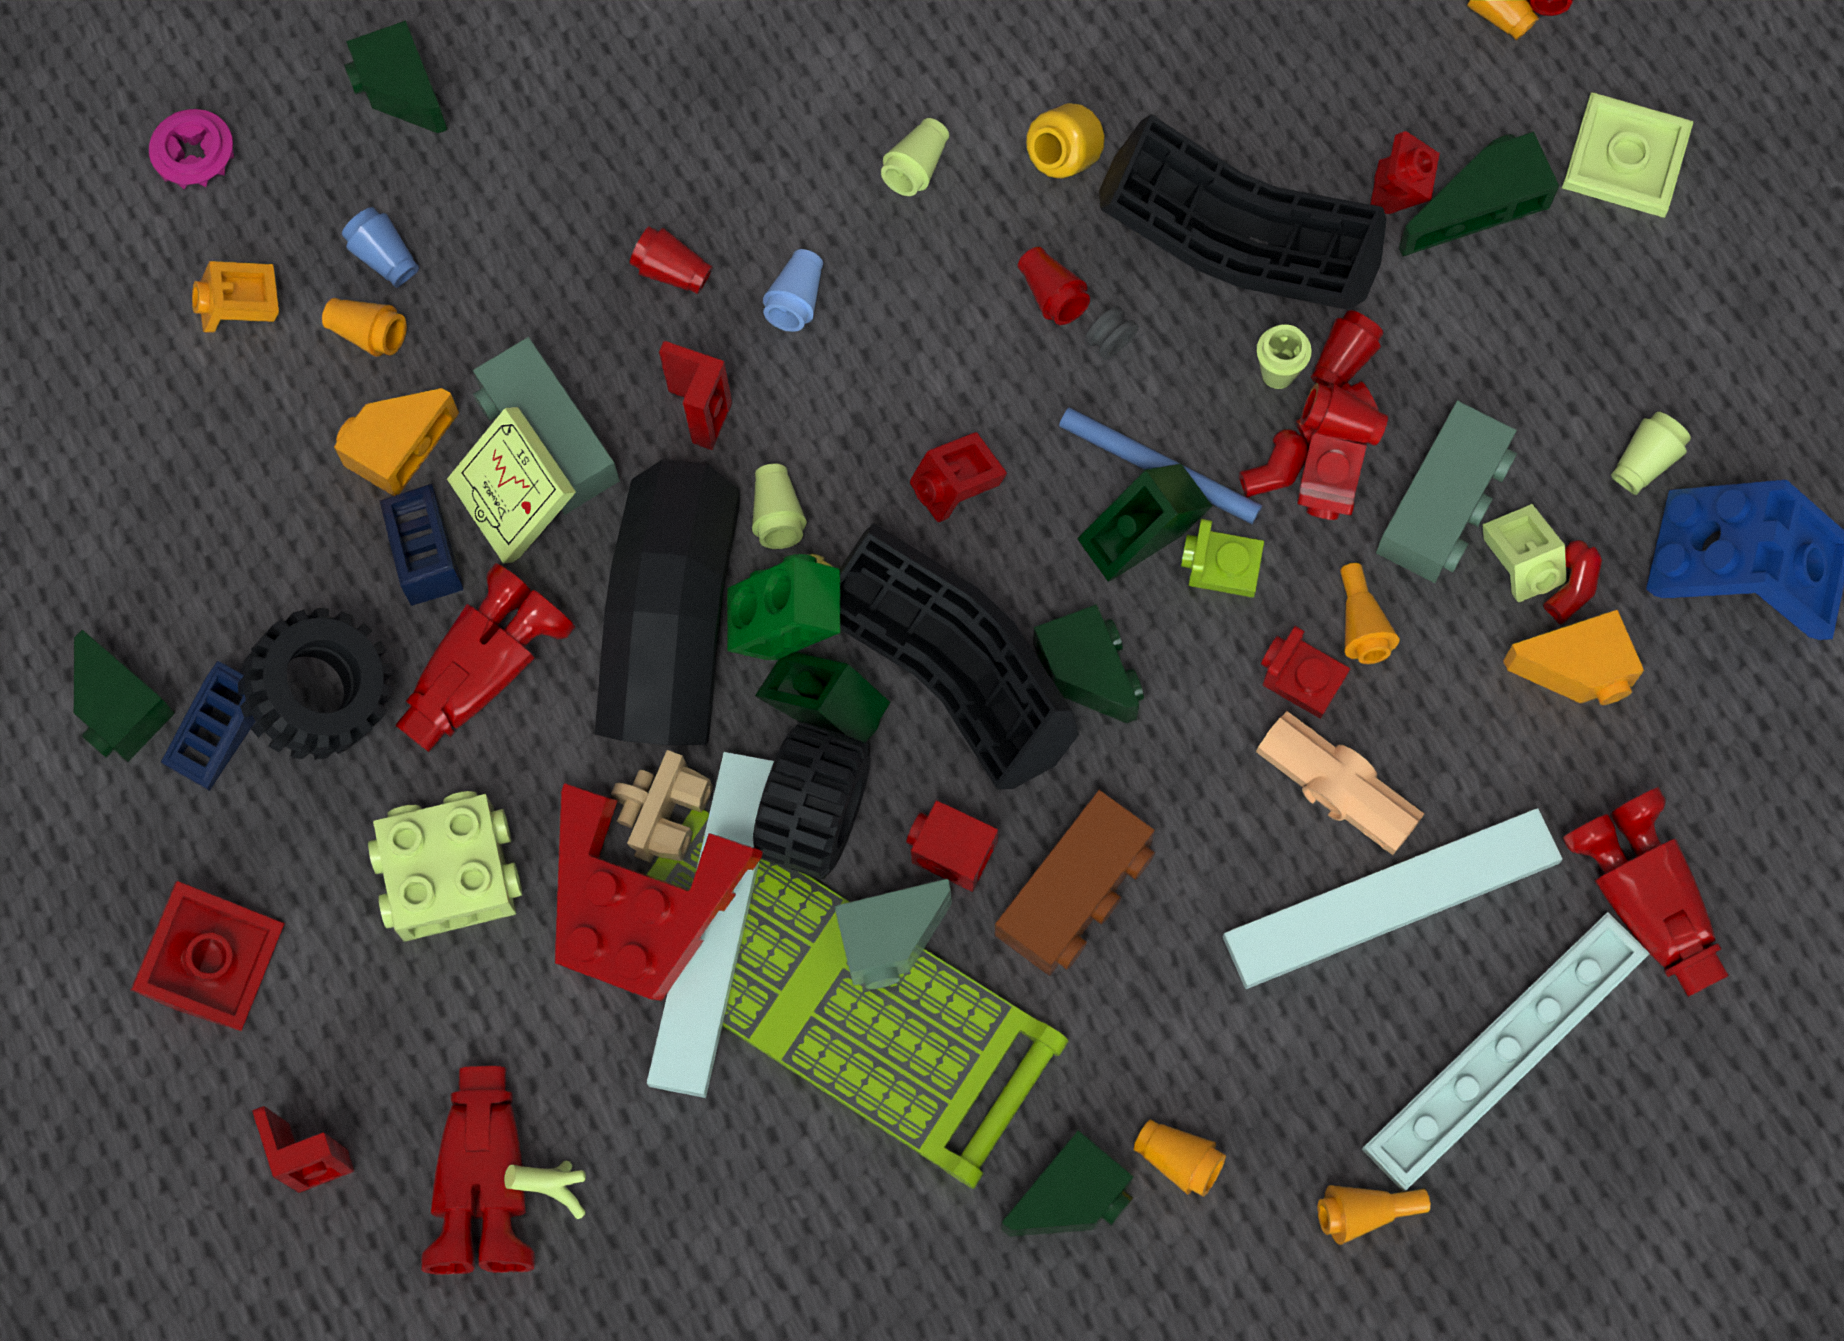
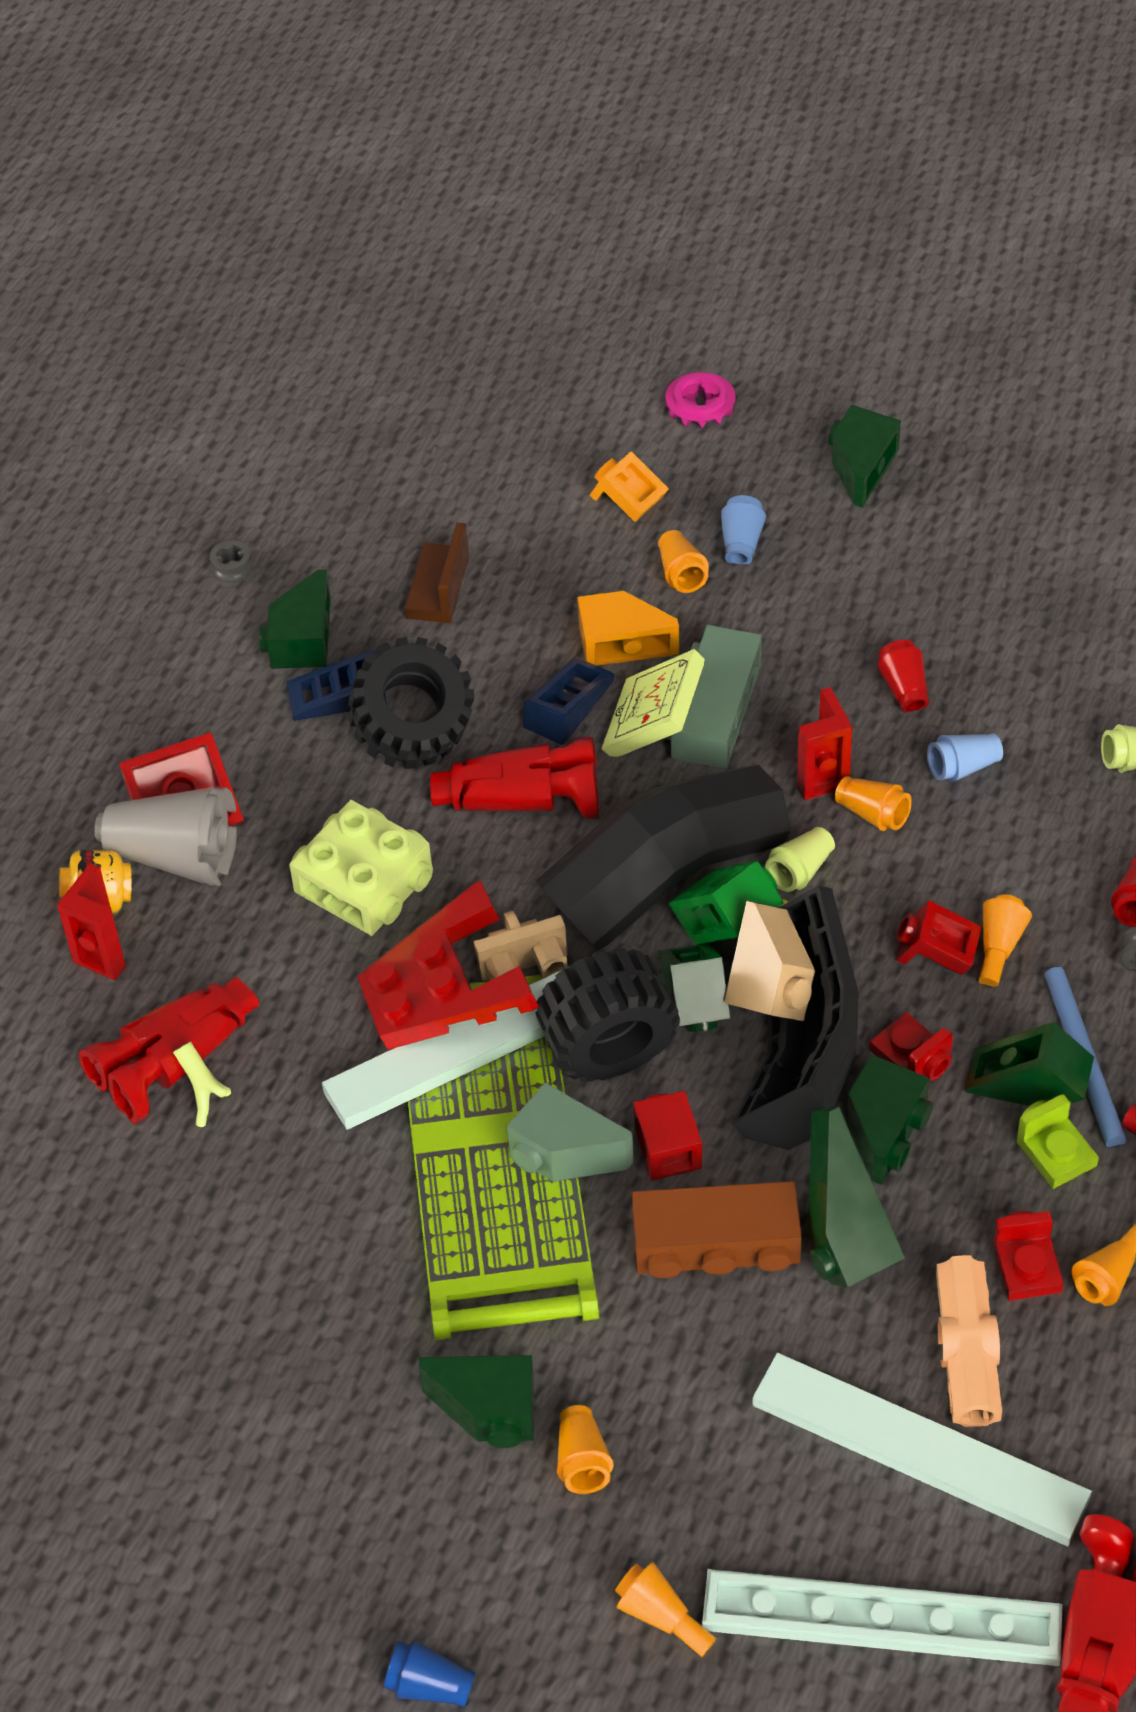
camera: 50 degrees right, 20 degrees down
(175, 540) = (439, 579): none -> reddish brown panel
(228, 1107) = (114, 872): none -> yellow head
(255, 1004) = (174, 832): none -> light grey cone
(774, 400) = (874, 801): none -> light orange cone
(890, 633) = (770, 965): none -> tan slope
(991, 416) = (1003, 925): none -> light orange cone
(1041, 587) = (914, 1047): none -> red bracket
(1160, 775) = (844, 1211): none -> dark green slope

